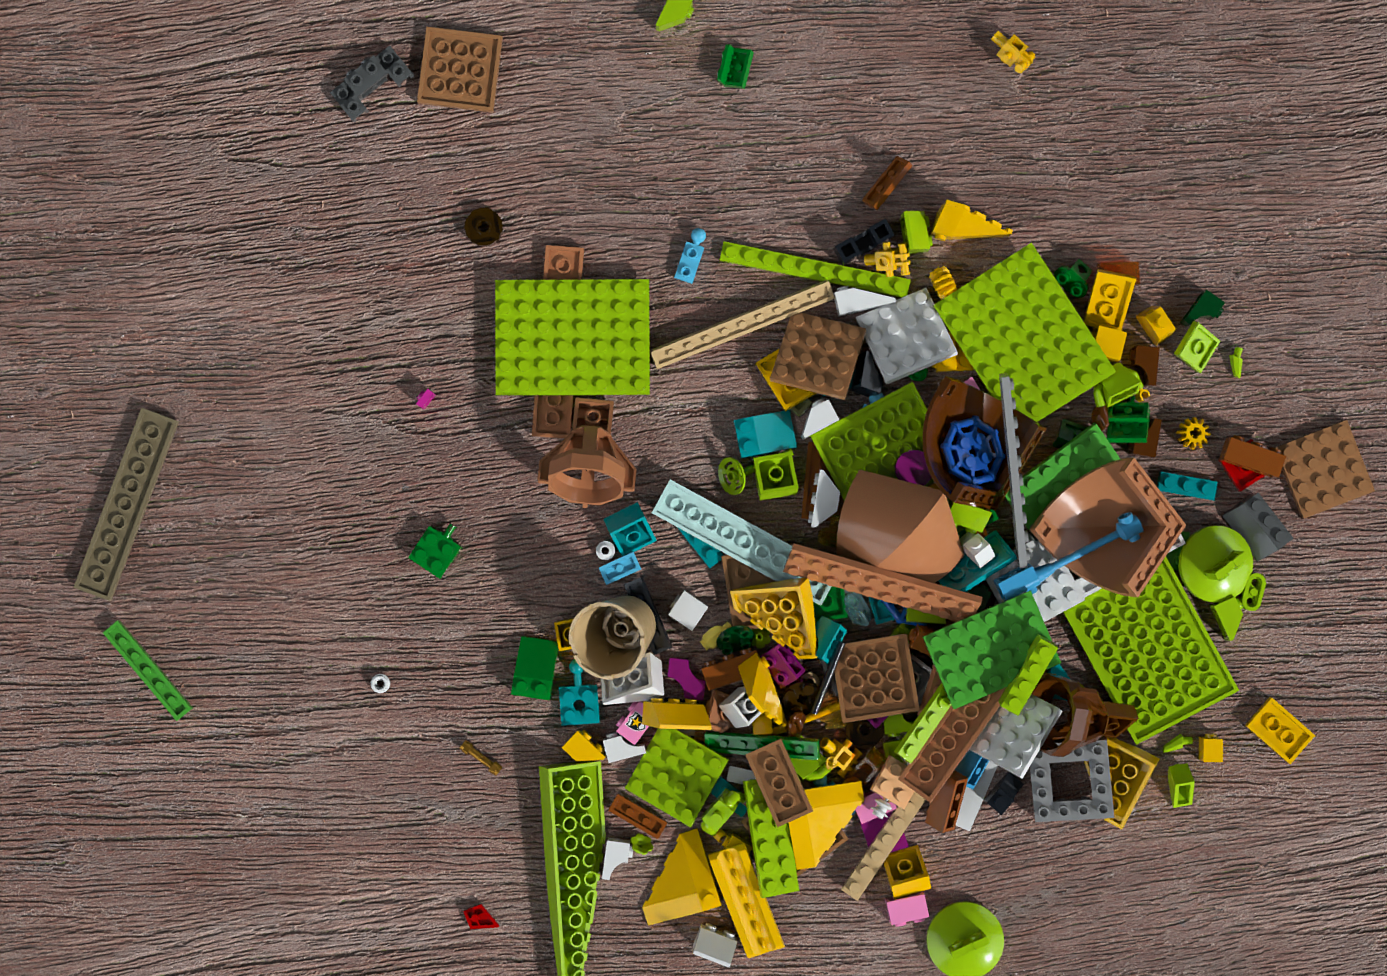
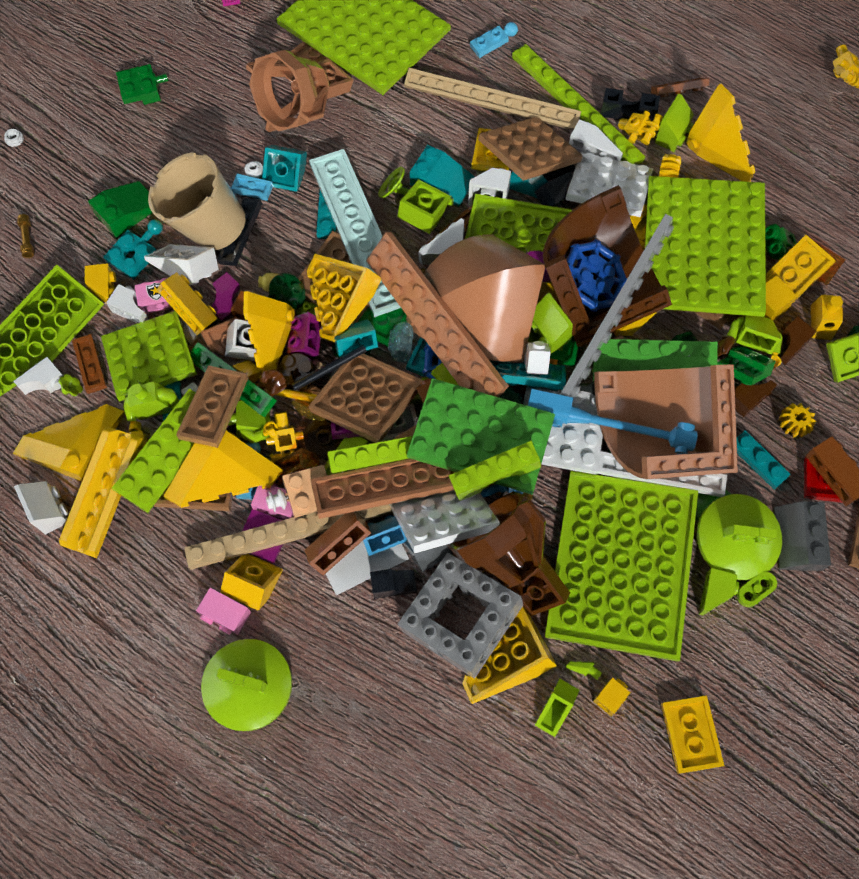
camera: 45 degrees right, 20 degrees down
(687, 610) = (271, 246): white head -> none

